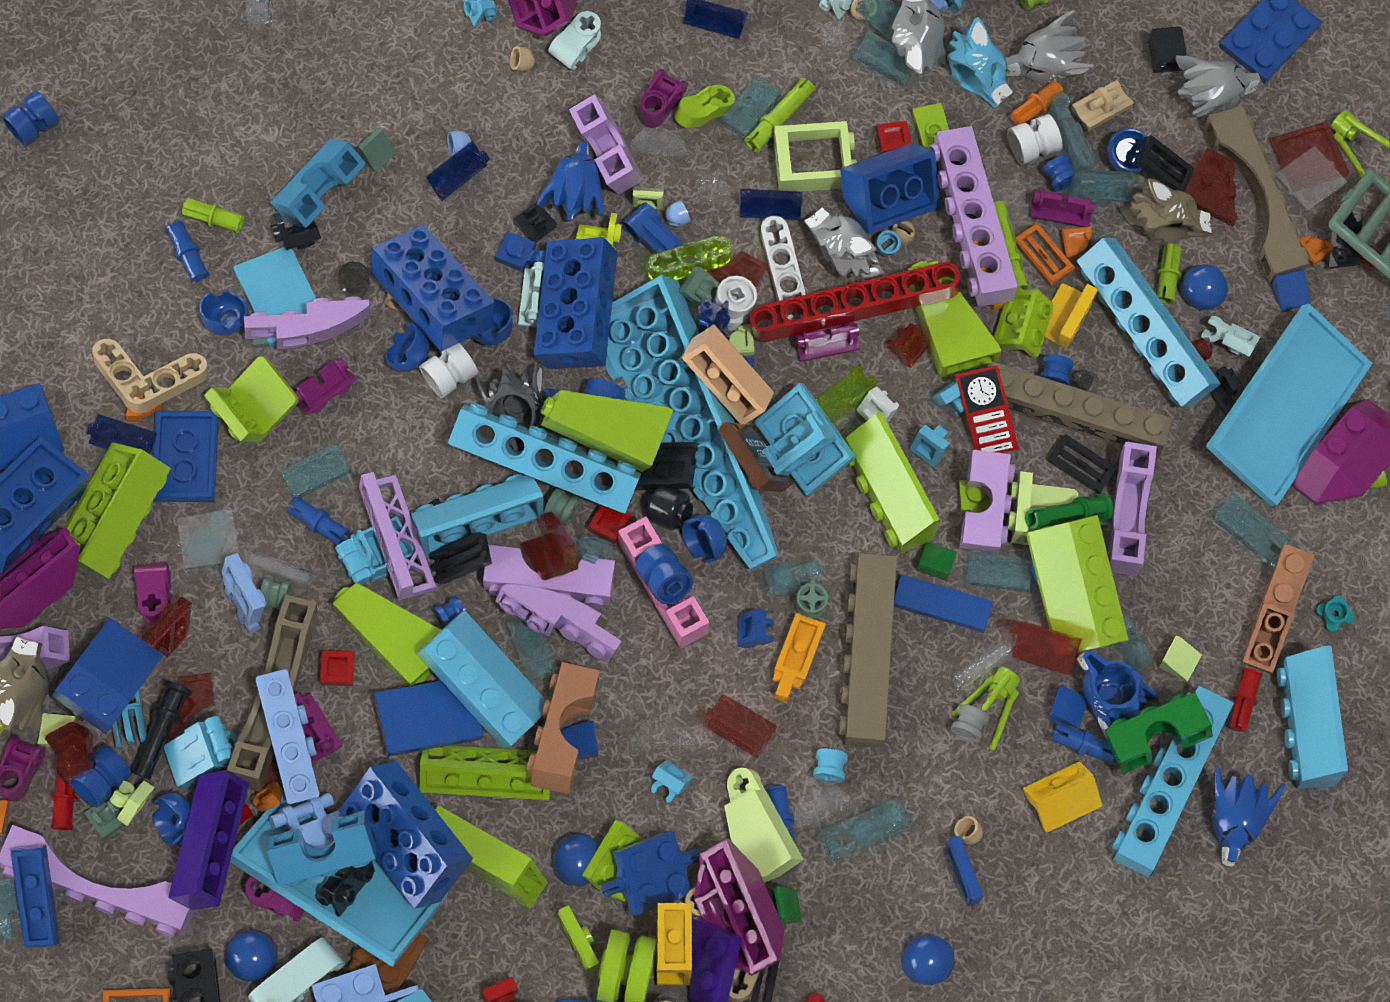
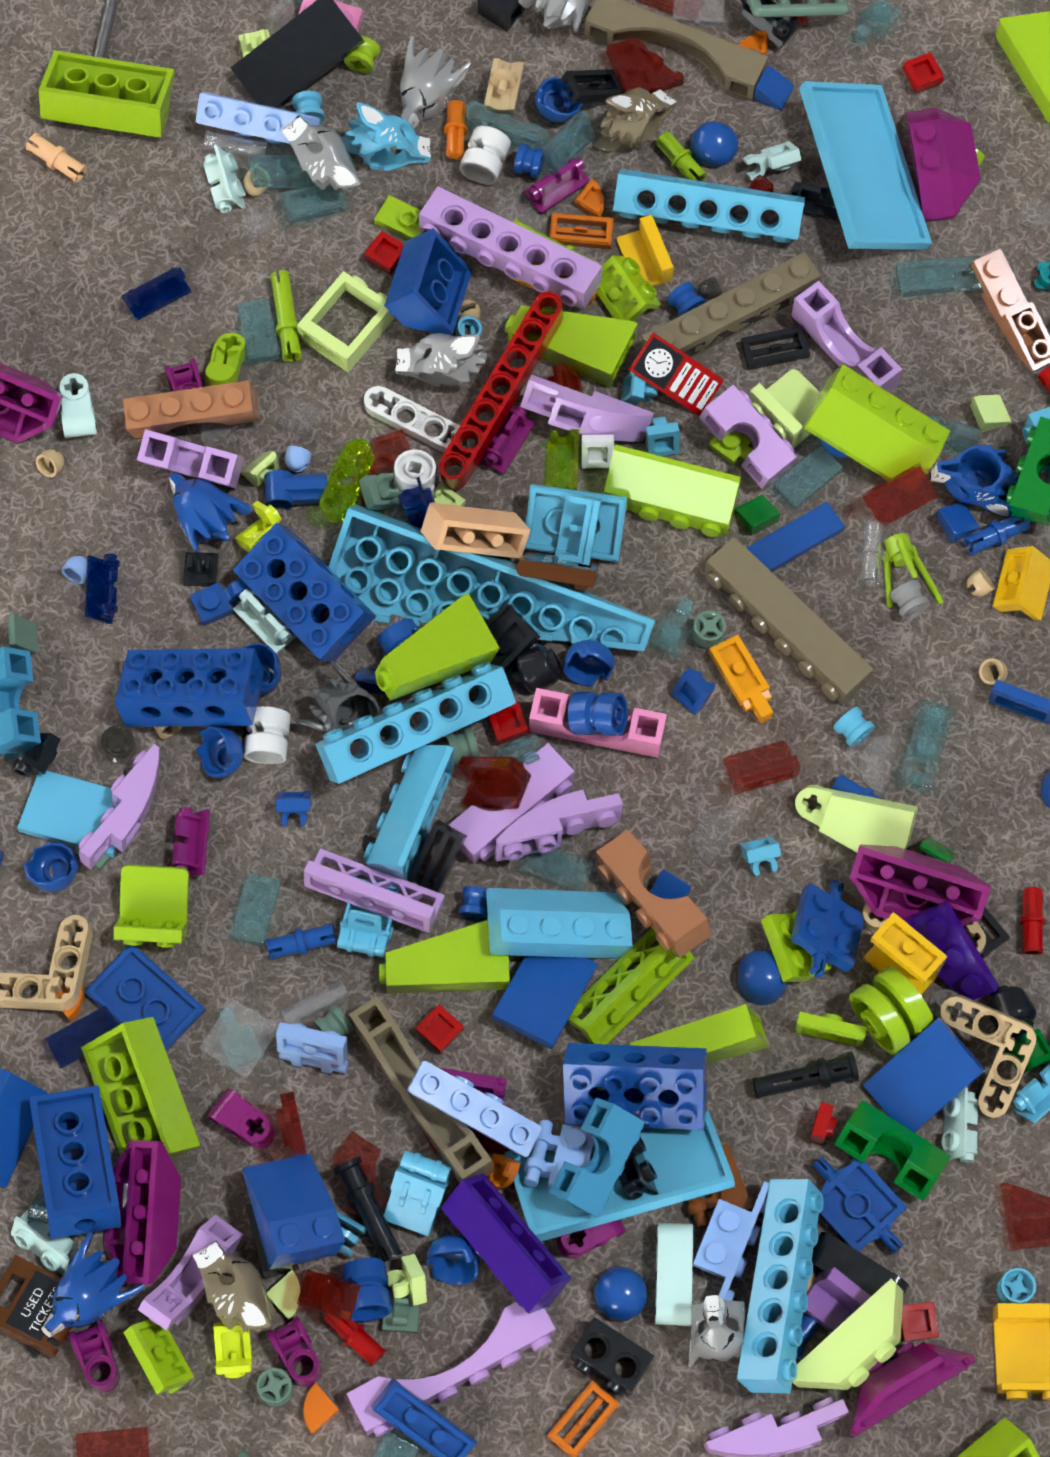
camera: 45 degrees left, 0 degrees up
(415, 429) = (293, 803): none -> blue tile
(544, 959) = (825, 1077): none -> black pin
(655, 119) = (220, 403): none -> nougat arch
(768, 203) = (354, 384): clear blue hinge -> none
(894, 376) = (590, 414): none -> lavender slope
(1033, 764) = (981, 583): none -> tan hinge
(1078, 509) = (814, 377): green pin -> none

